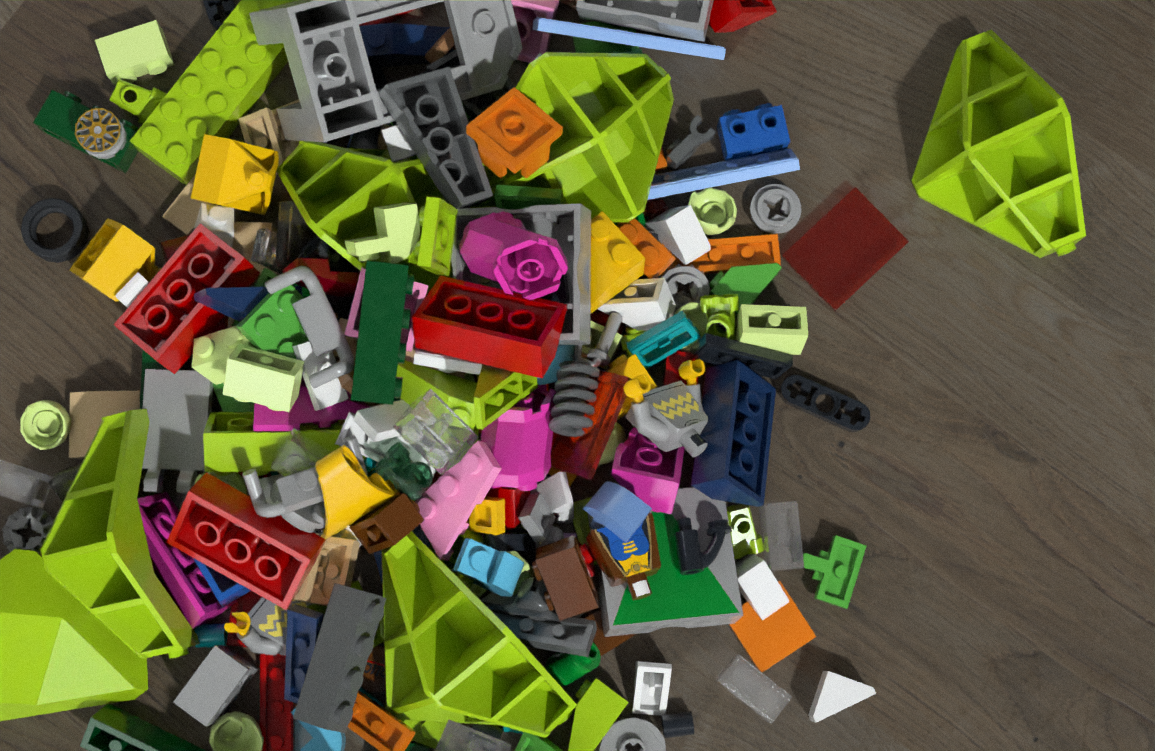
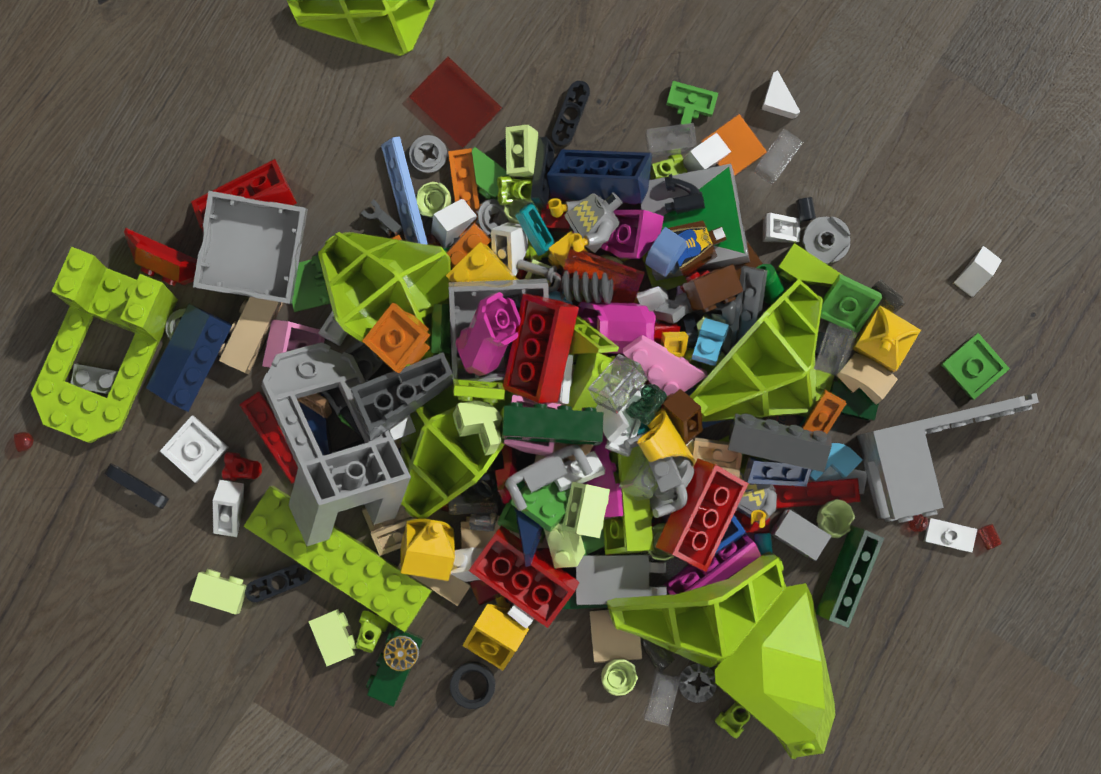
camera: 85 degrees left, 5 degrees up
(628, 38) = (307, 267): light blue tile -> none
(752, 131) = (372, 172): blue brick -> none

